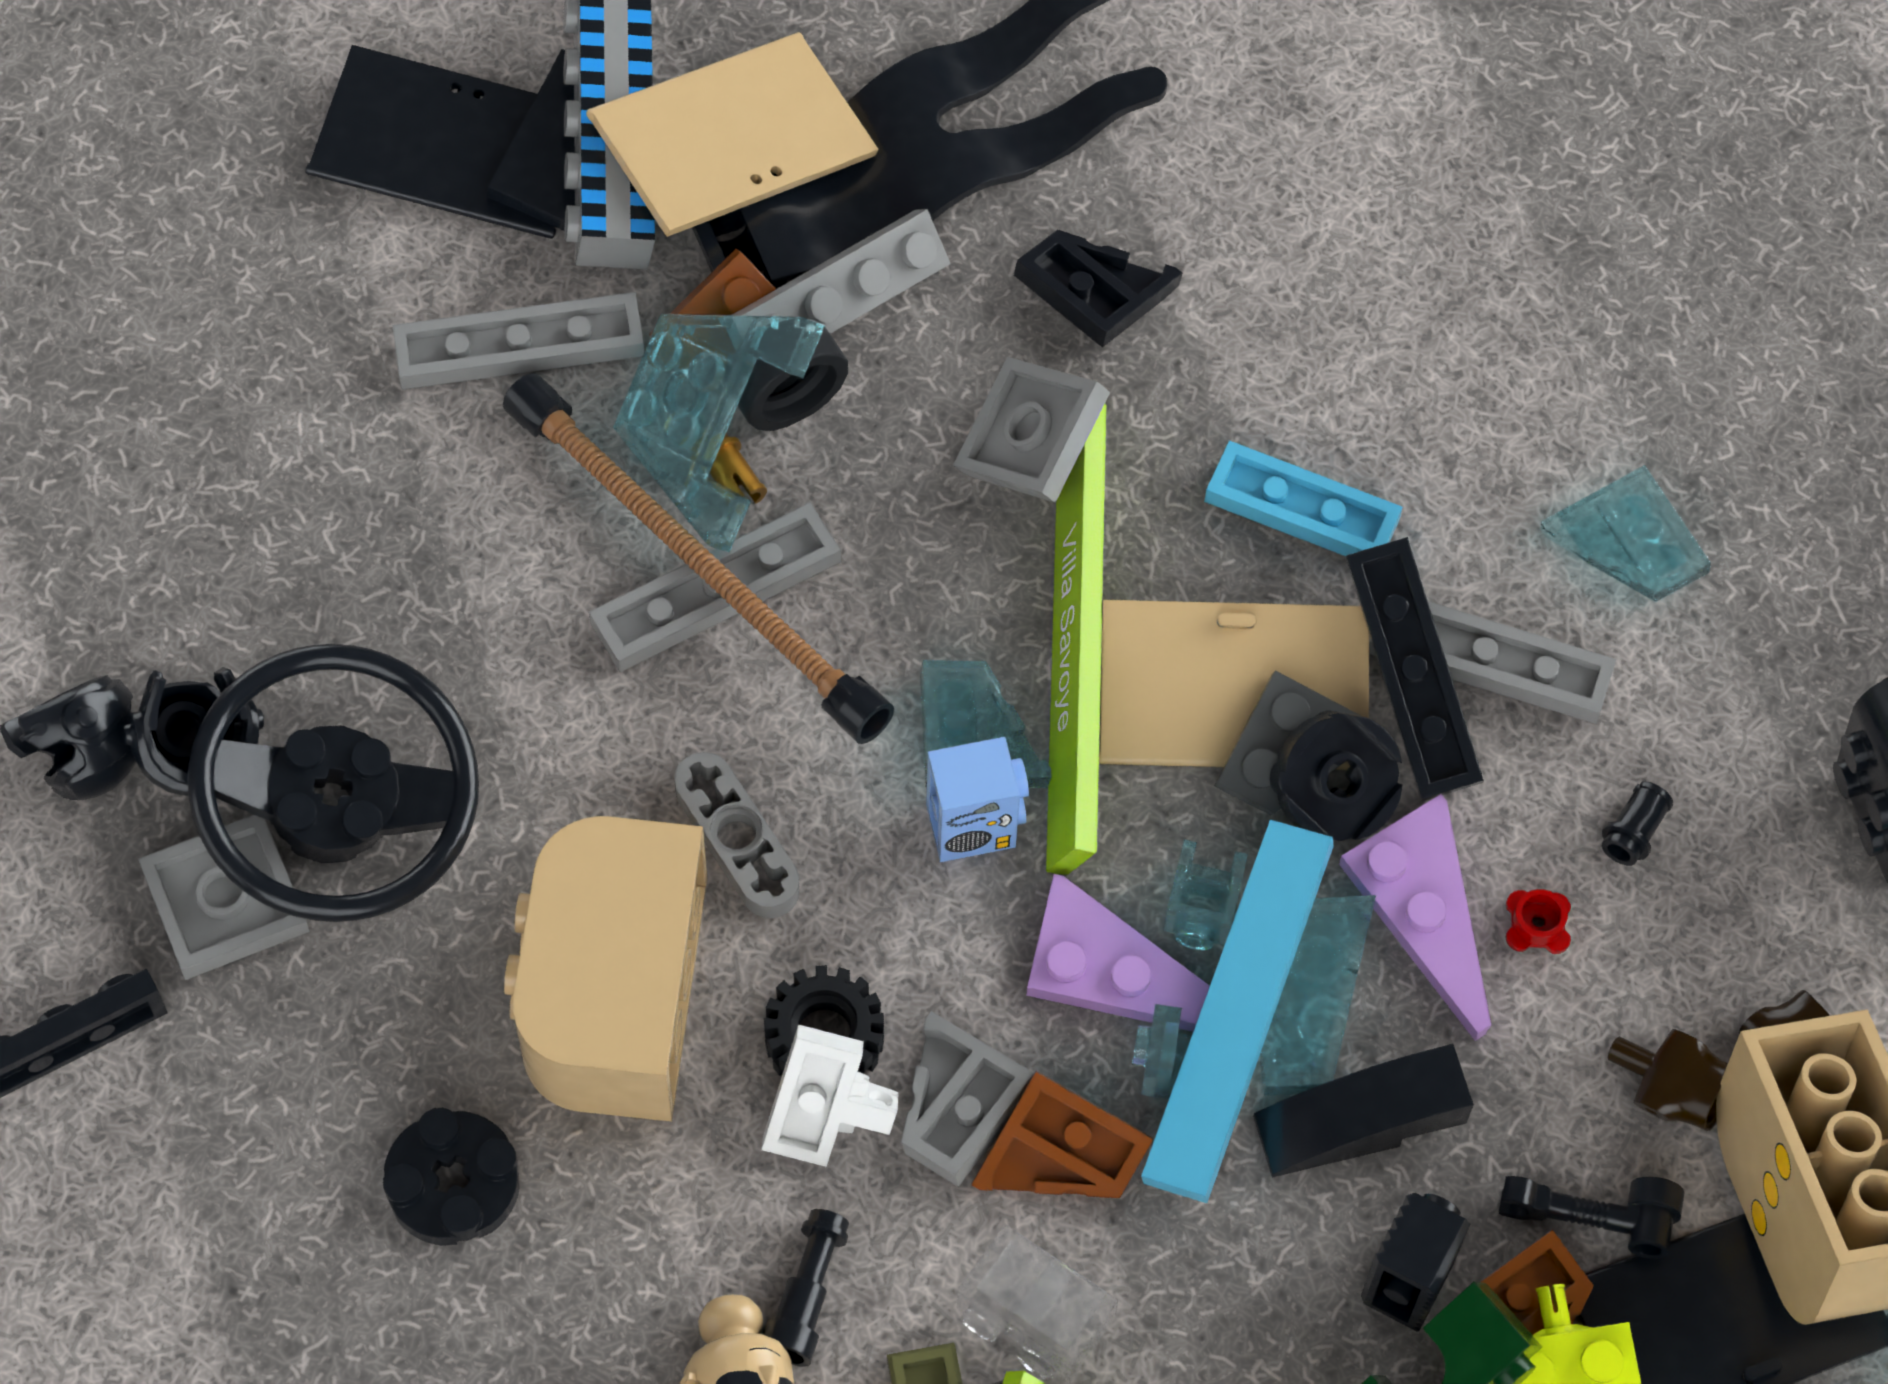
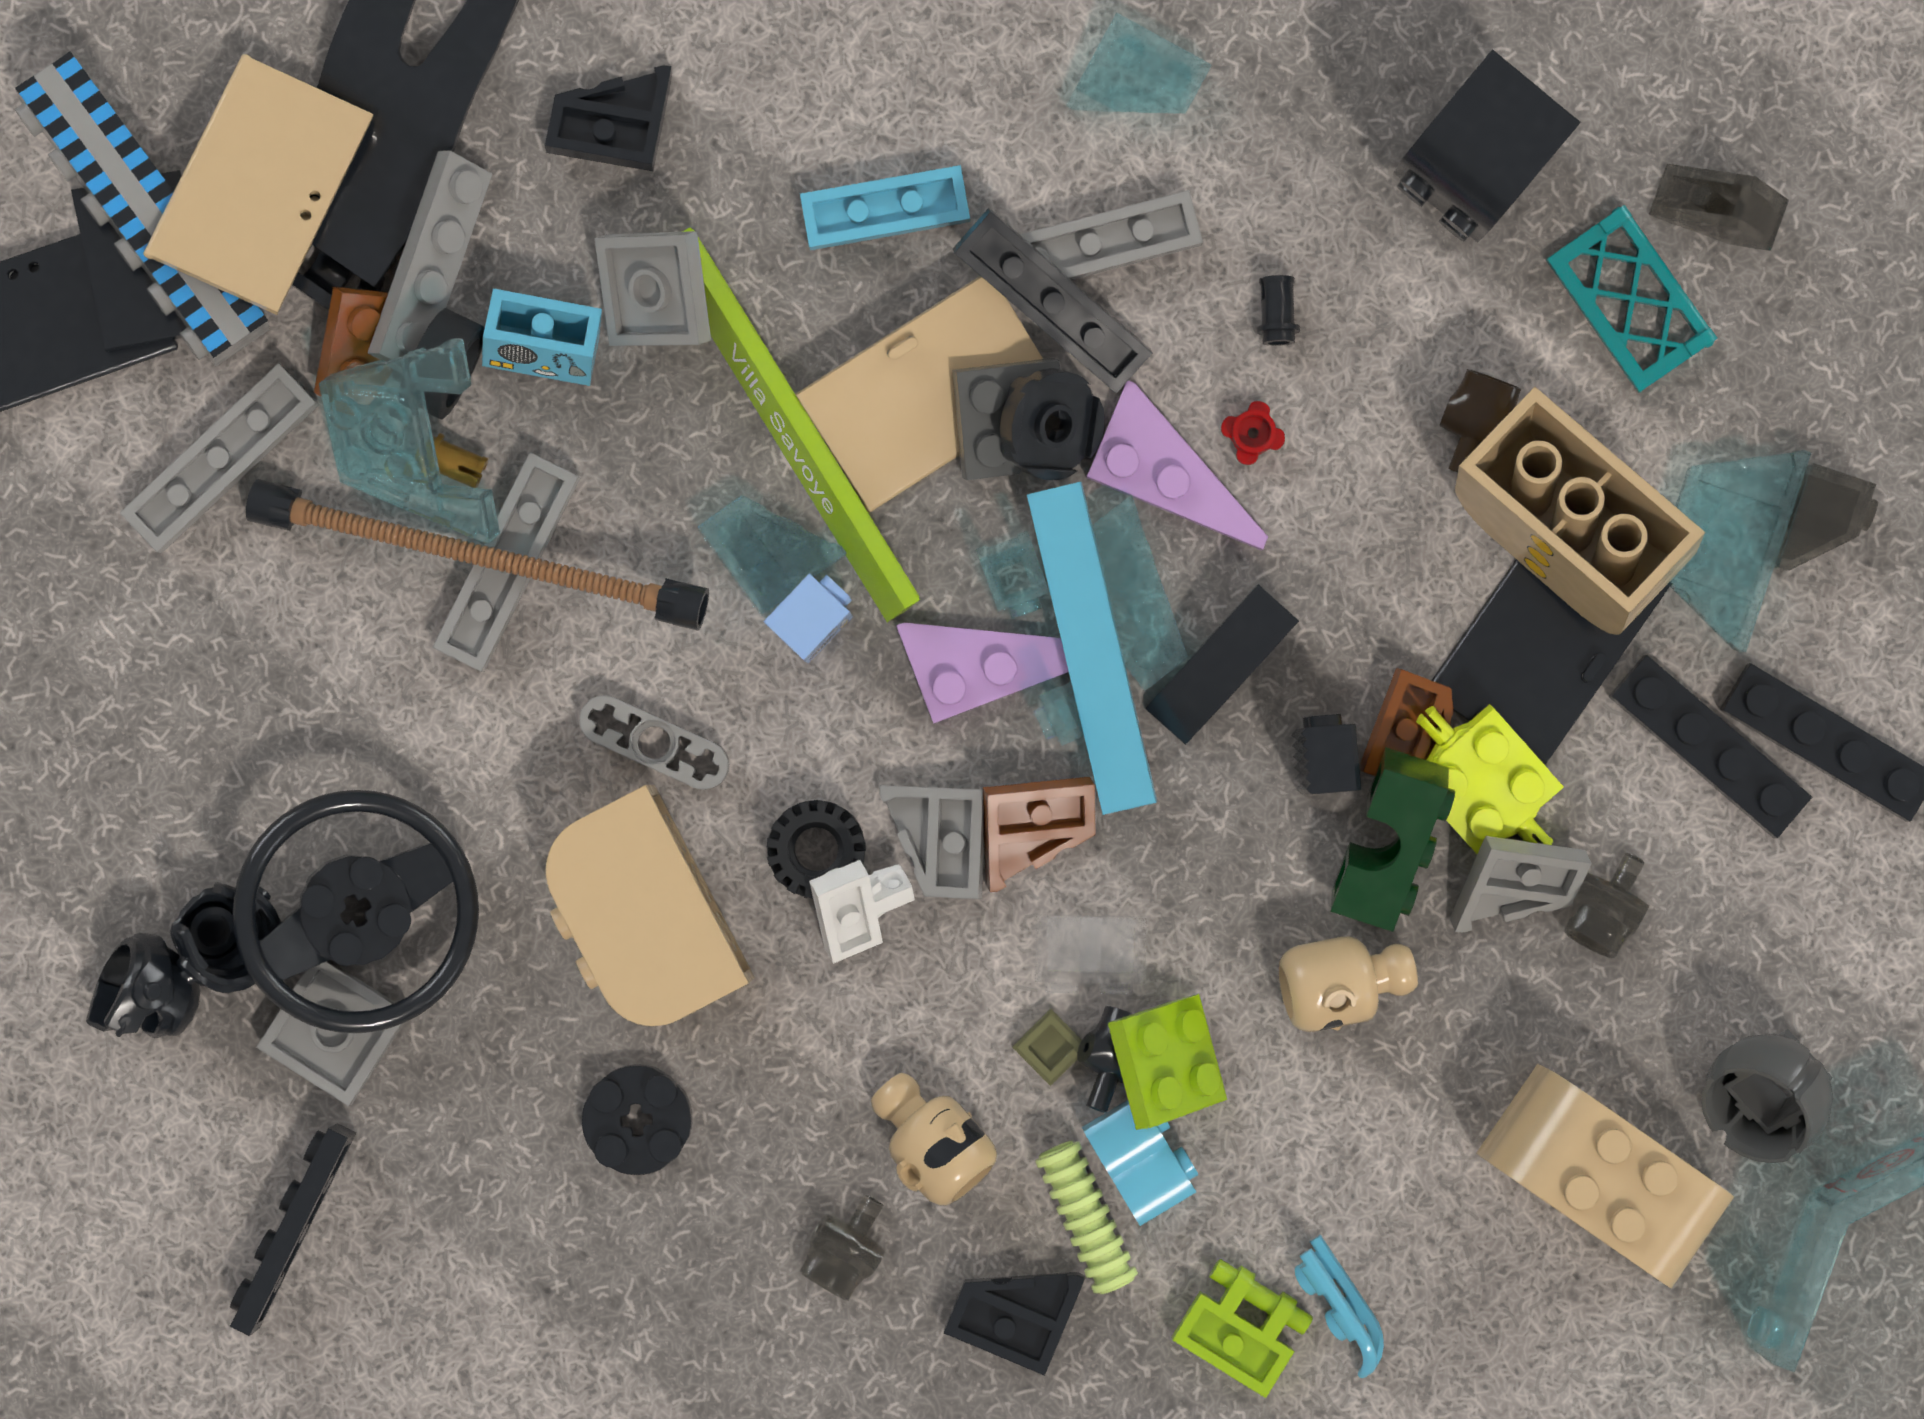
camera: 30 degrees left, 25 degrees up
(804, 1293) = (931, 1046): black piece -> none
(895, 410) = (541, 337): none -> medium azure brick
(1647, 1218) = (1456, 613): black brick -> none
(1677, 1080) = (1420, 493): dark brown piece -> none

